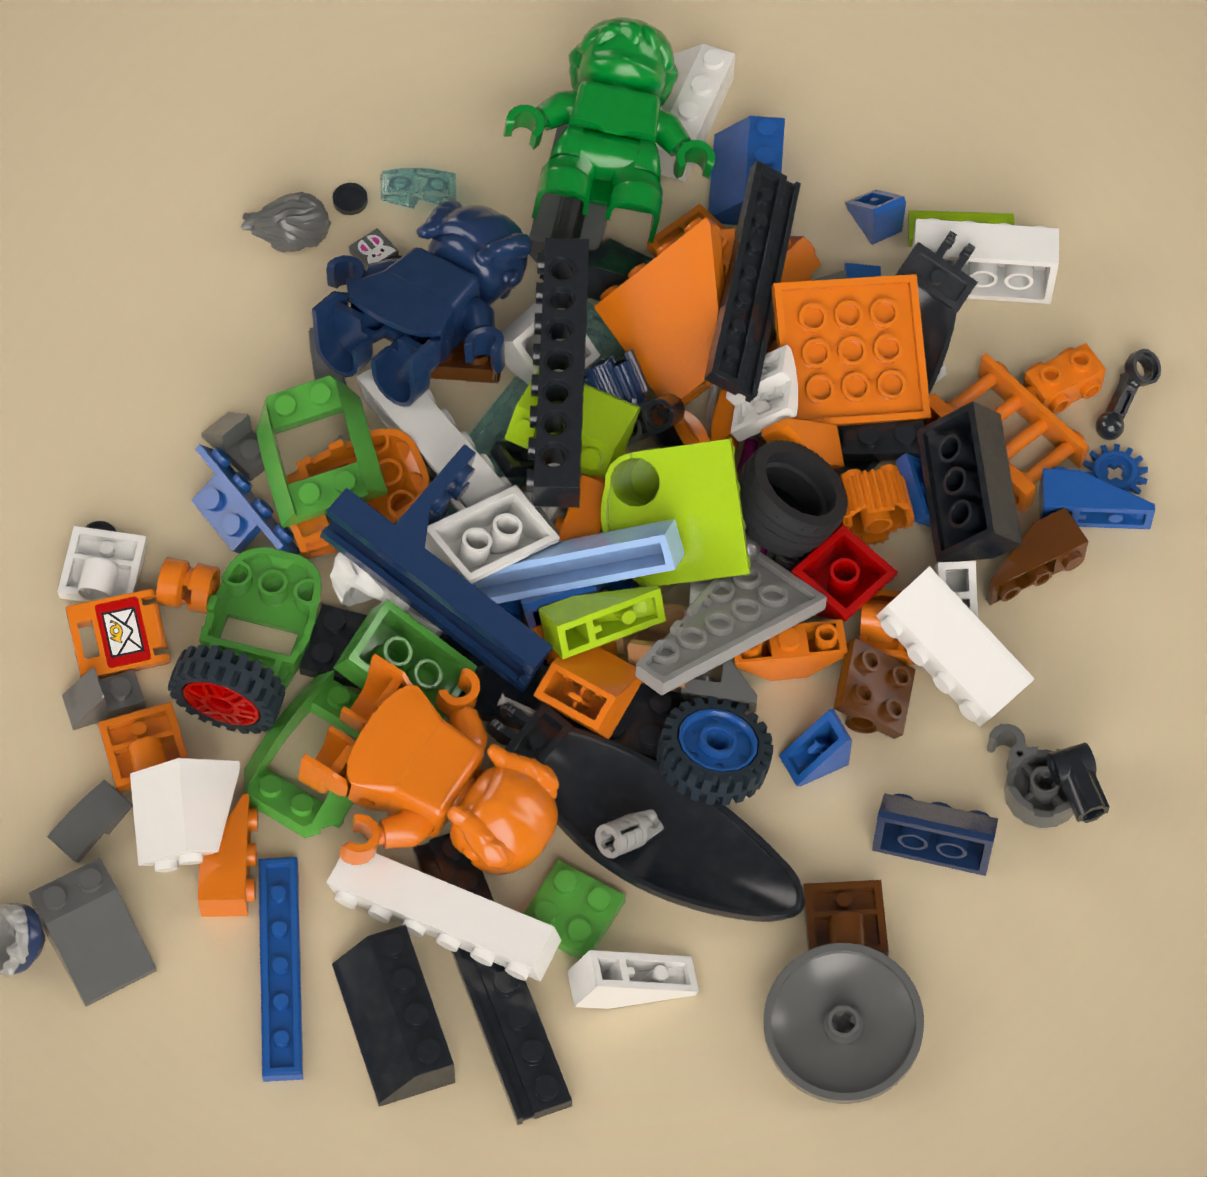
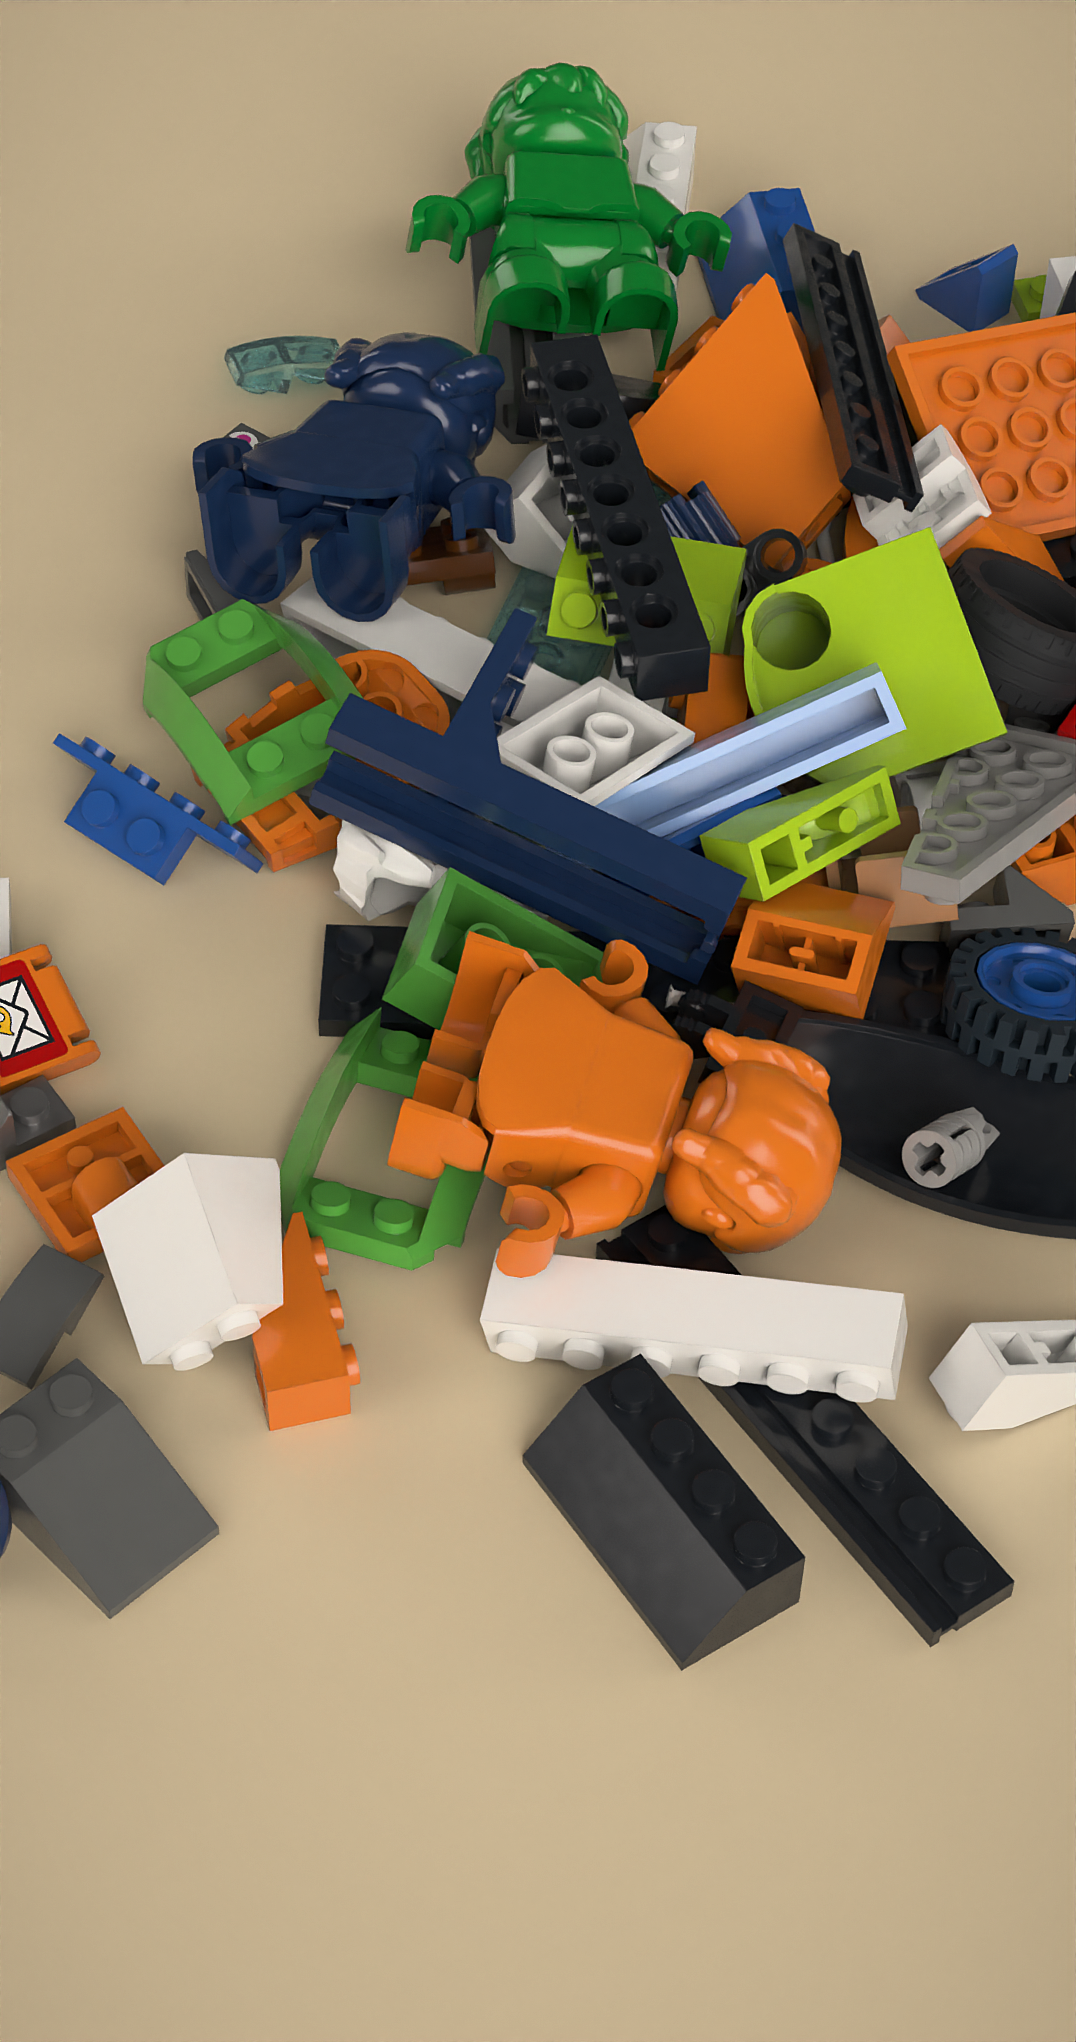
camera: 15 degrees left, 10 degrees down
(186, 585) = (76, 934): orange wheel -> none
(226, 689) = (218, 1057): black wheel -> none
(238, 440) = (112, 723): dark grey slope -> none
(269, 591) = (234, 923): bright green slope -> none
(280, 969) = (439, 1488): blue tile -> none
(290, 222) = (107, 433): dark grey hair -> none
(350, 198) = (185, 399): black piece -> none
(512, 458) = (574, 661): black plate -> none
(576, 907) = (921, 1266): bright green plate -> none

